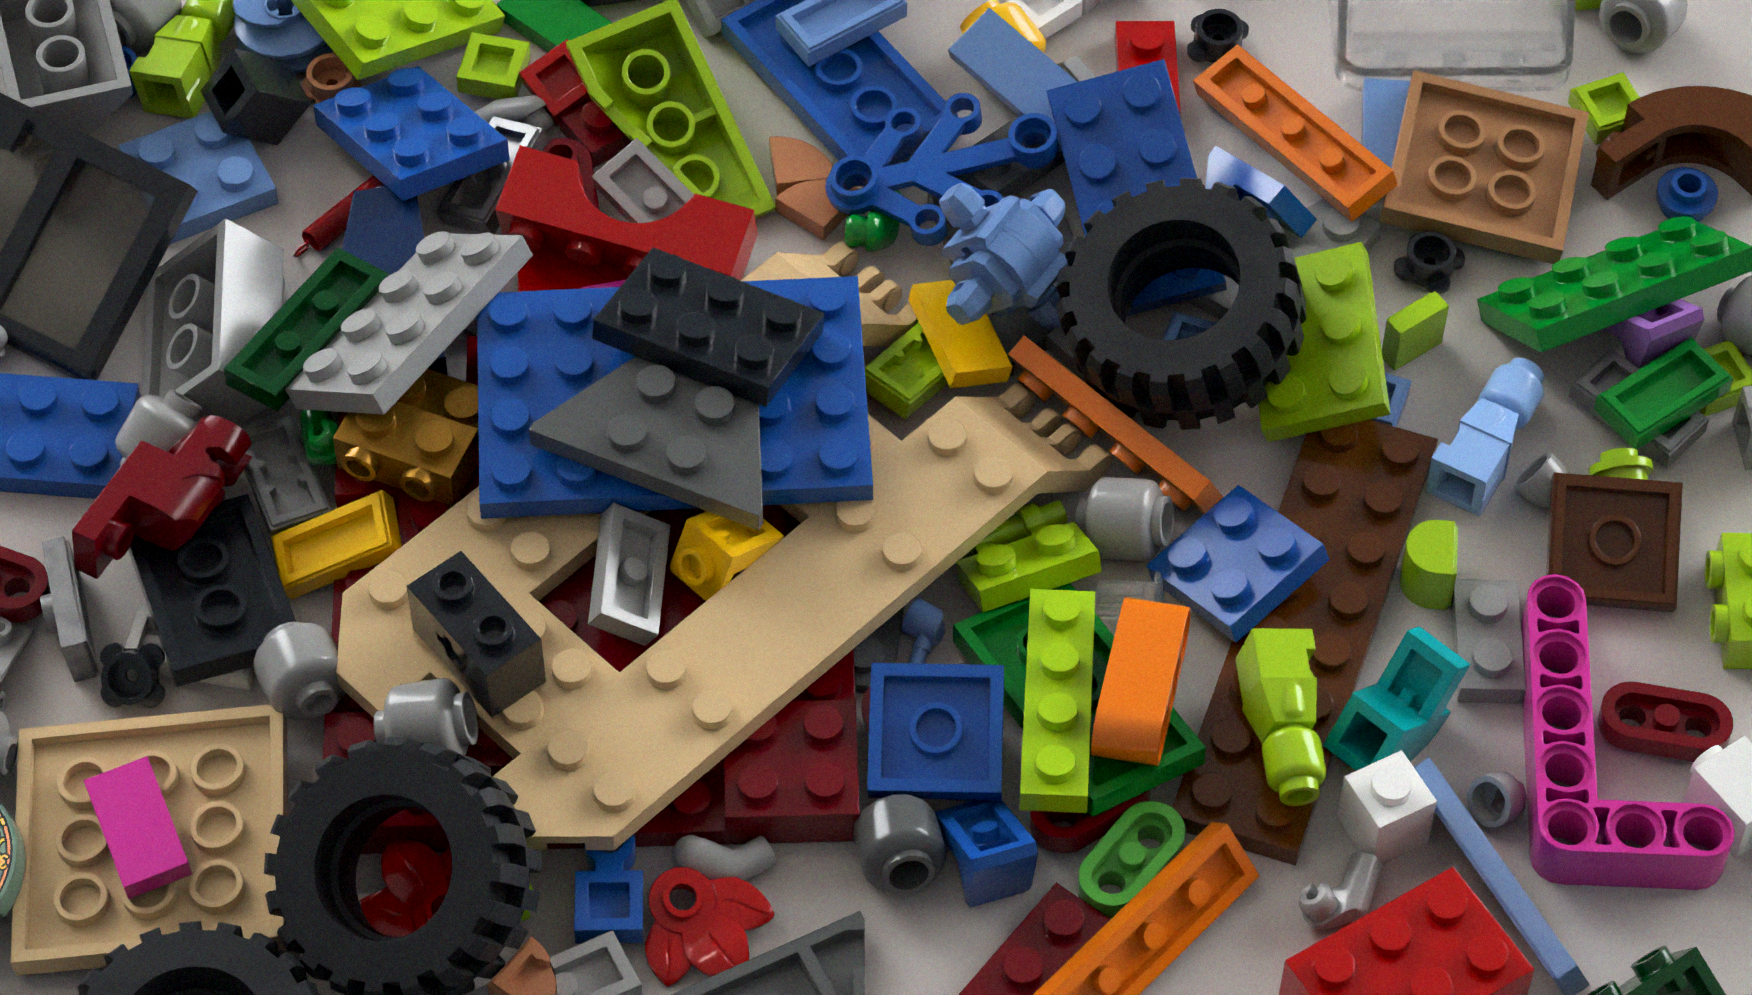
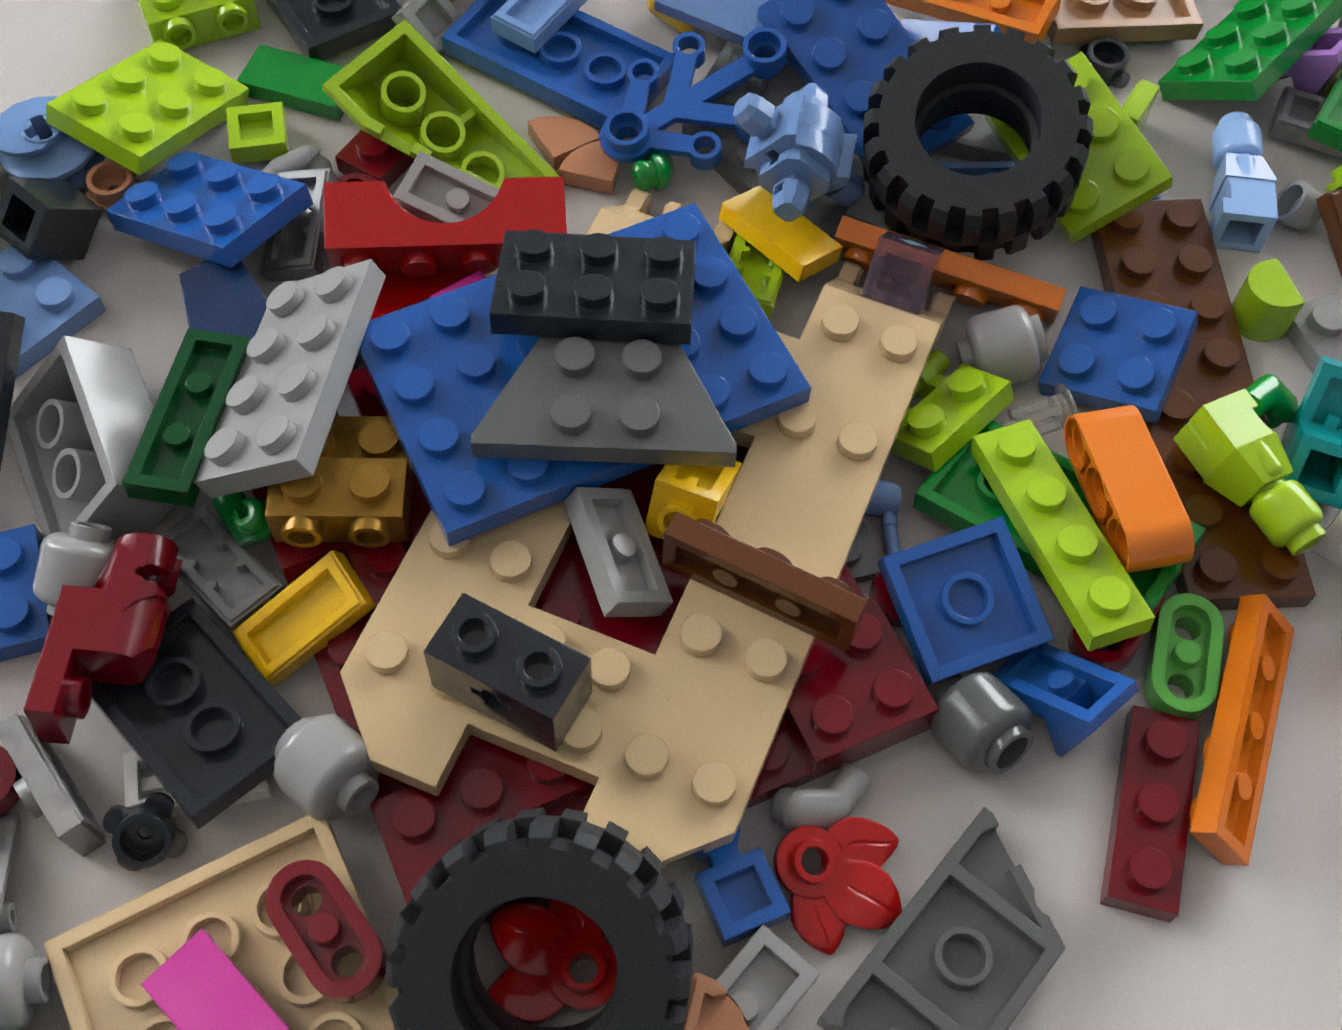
camera: 25 degrees left, 5 degrees up
(246, 796) = (328, 934): none -> dark red plate
(333, 222) = (168, 308): red piece -> none
(429, 713) = (489, 780): light grey head -> none
(555, 81) = (322, 125): red plate -> none
(738, 638) = (763, 580): none -> reddish brown plate
(1043, 409) = (902, 272): none -> brick
(1360, 649) = (1273, 400): none -> green arm

